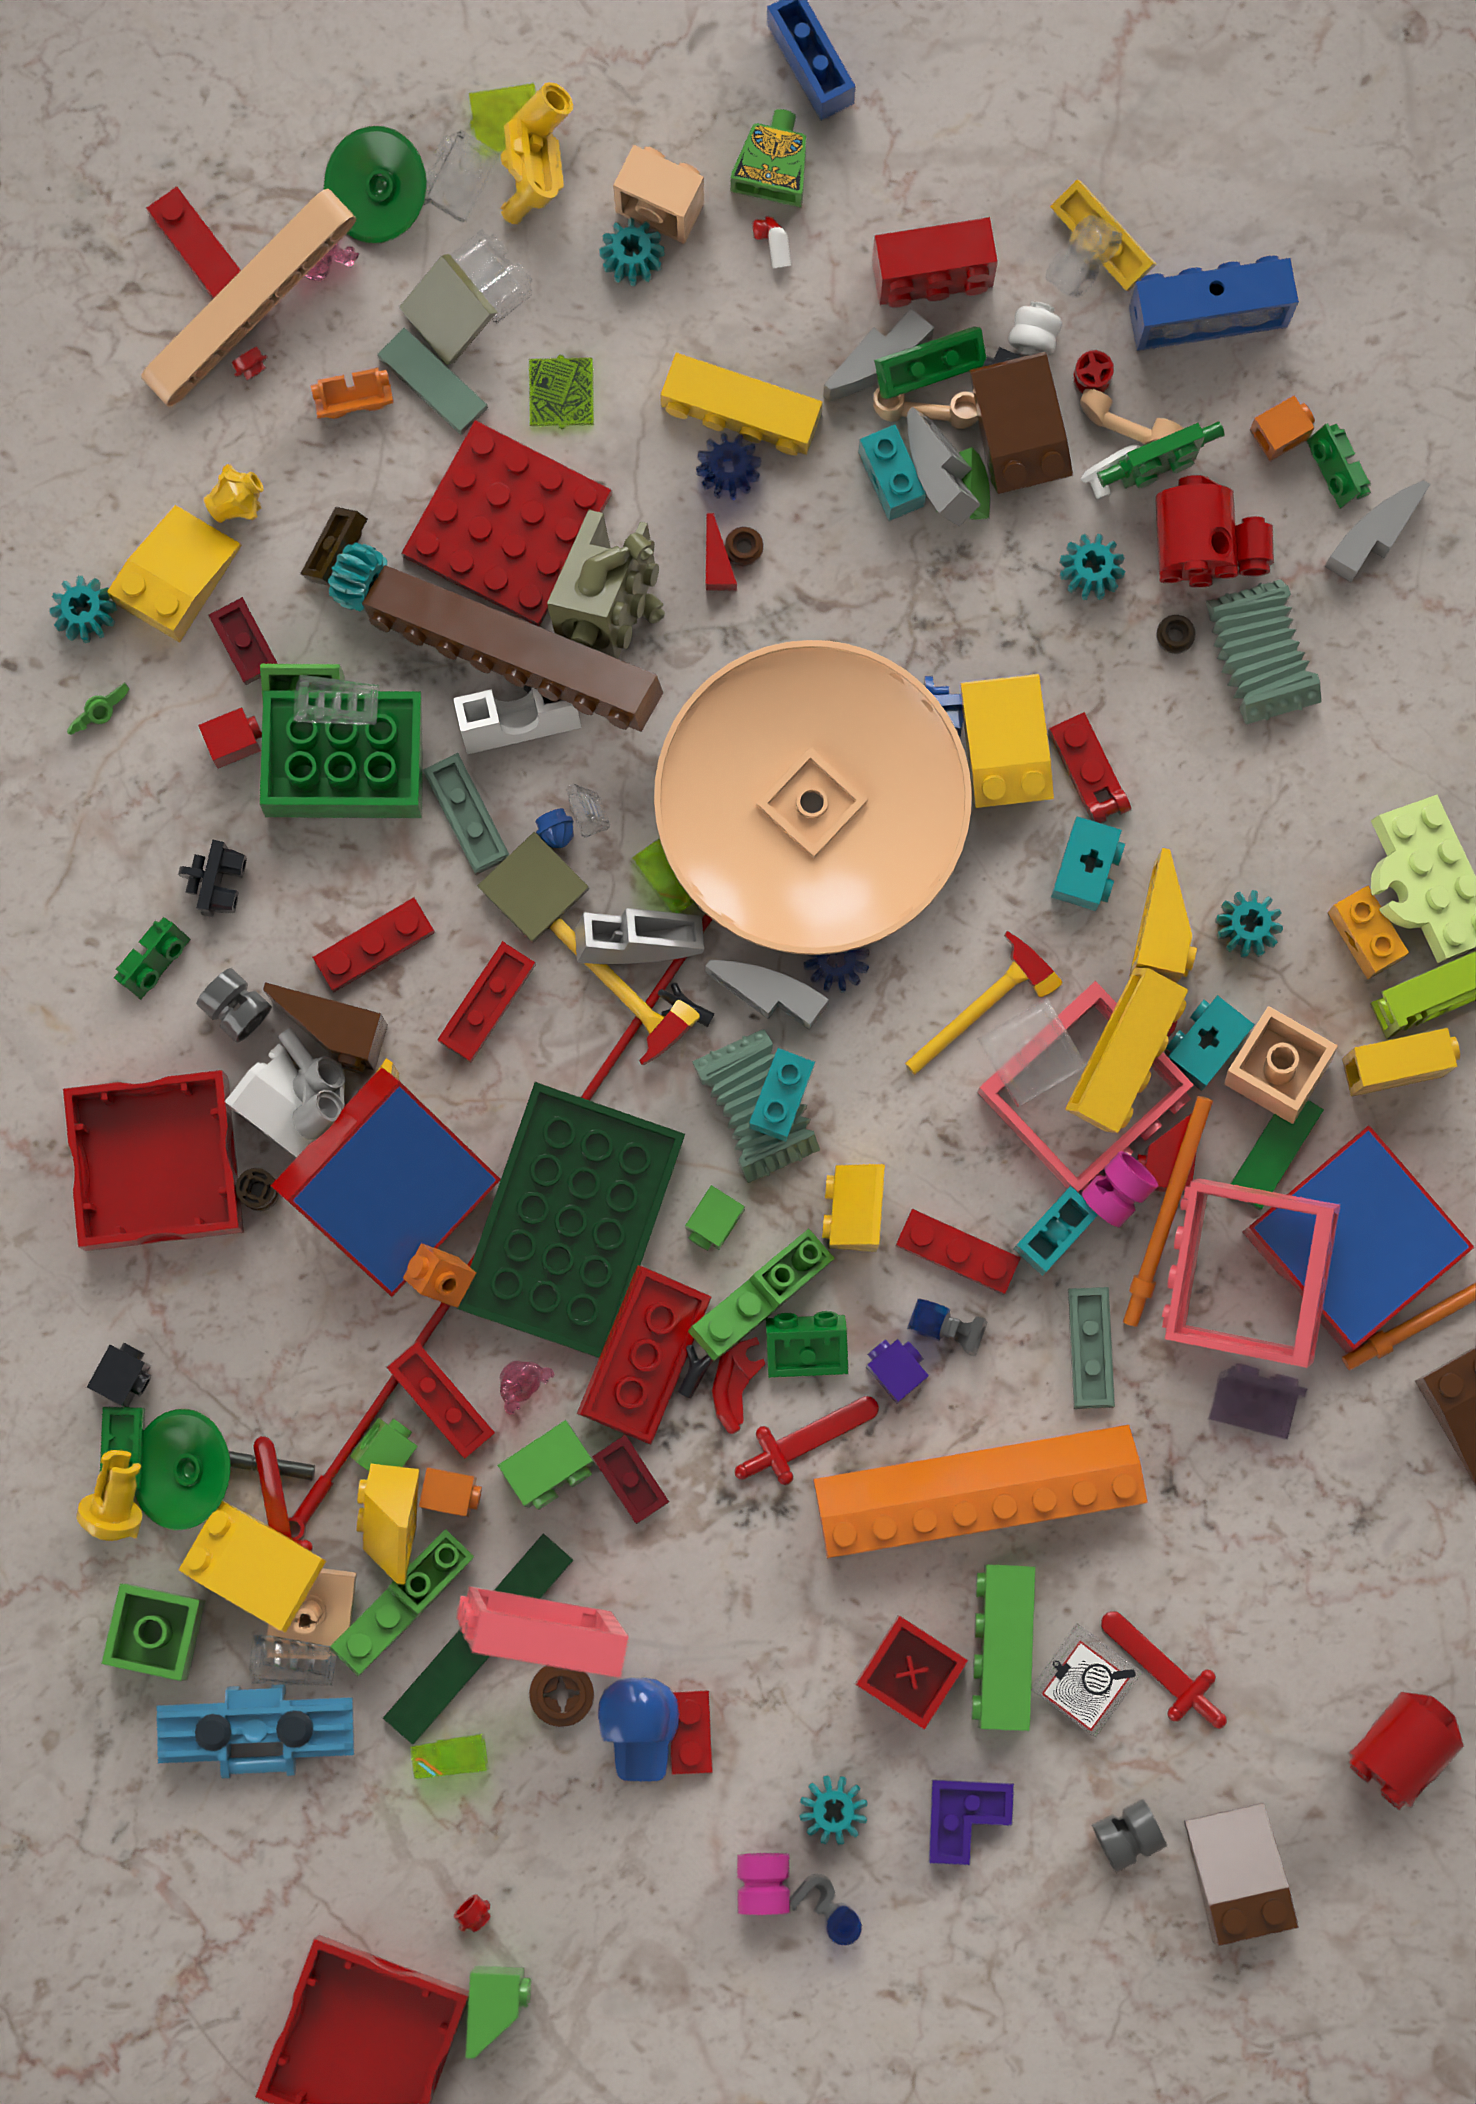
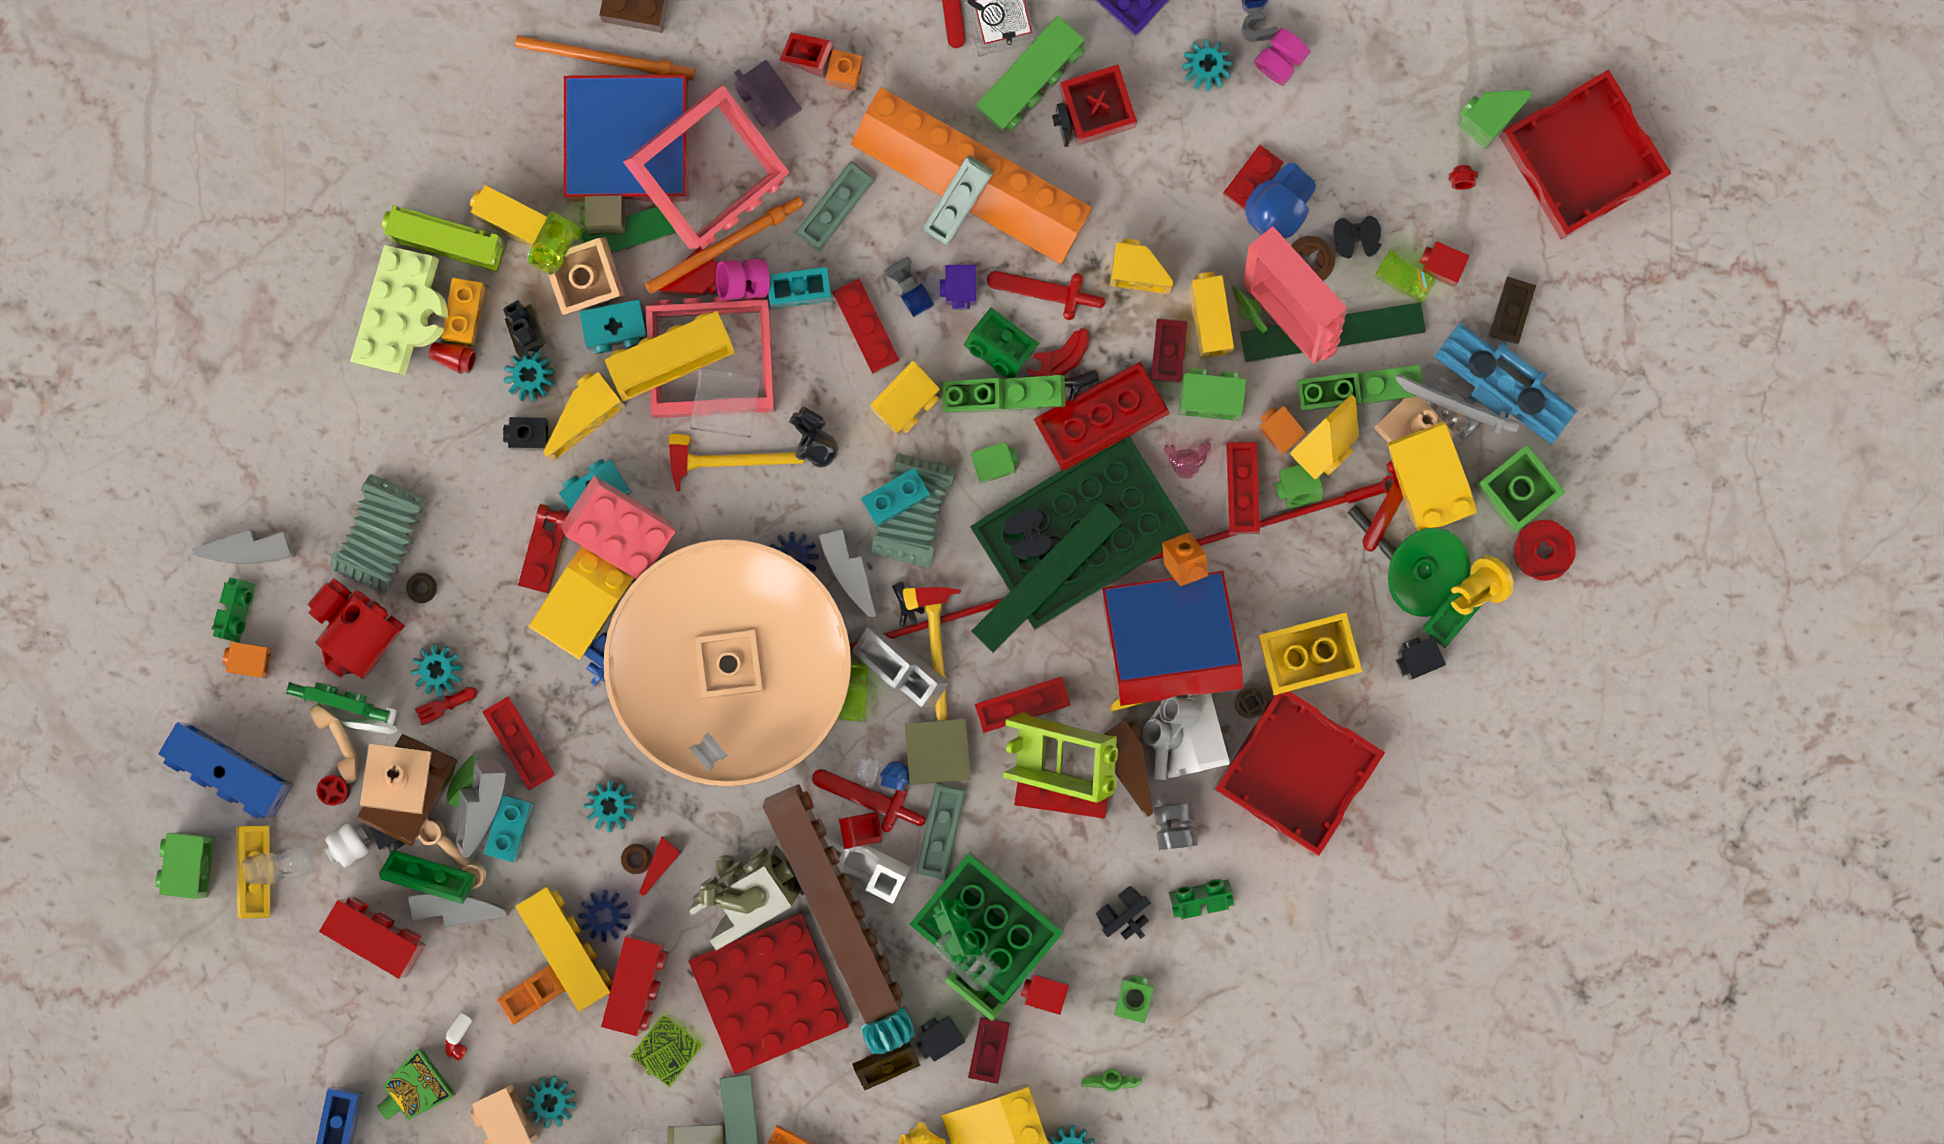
camera: 140 degrees left, 5 degrees up
(57, 1593) = (1533, 564): none -> red plate
(130, 789) = (1134, 1013): none -> bright green brick
(230, 1682) = (1498, 421): none -> light grey sword
(234, 1283) = (1310, 653): none -> yellow slope
(301, 613) = (939, 1038): none -> black brick
(310, 1815) = (1512, 310): none -> dark brown plate
(378, 727) = (953, 919): none -> green hinge
(418, 939) = (1030, 752): none -> lime door
(420, 1805) = (1444, 263): none -> red brick
(535, 797) = (890, 807): none -> red sword
(545, 745) = (860, 830): none -> red tile
(546, 1754) = (1347, 233): none -> black piece
(564, 1143) = (1046, 576): none -> dark green tile
(582, 1591) = (1249, 309): none -> bright green piece
(615, 1547) = (1211, 315): none -> yellow brick
(627, 1182) = (1035, 542): none -> black piece
(642, 420) = (634, 985): none -> red brick
(731, 1533) = (1138, 269): none -> yellow slope
(737, 334) = (530, 995): none -> orange slope
(756, 689) = (708, 752): none -> light grey wheel
(800, 582) = (600, 809): none -> teal gear
(908, 1089) = (815, 443): none -> black piece
(936, 1625) = (1061, 119): none -> black piece
(952, 562) = (518, 743): none -> red plate
(971, 1453) = (958, 200): none -> tile
(1033, 840) = (617, 528): none -> coral brick
(1040, 419) = (395, 779): none -> light nougat tile
(1060, 532) = (436, 709): none -> red piece
(1172, 185) = (185, 865): none -> bright green brick
(1199, 1492) = (844, 70): none -> orange brick
(1203, 865) = (526, 433): none -> black brick
(1250, 1480) = (808, 53): none -> red slope
(1294, 964) = (524, 328): none -> black hips
(1313, 1142) = (604, 215): none -> dark tan brick
(1338, 1065) = (553, 243): none -> clear neon green leg
(1339, 882) = (453, 356): none -> red cone

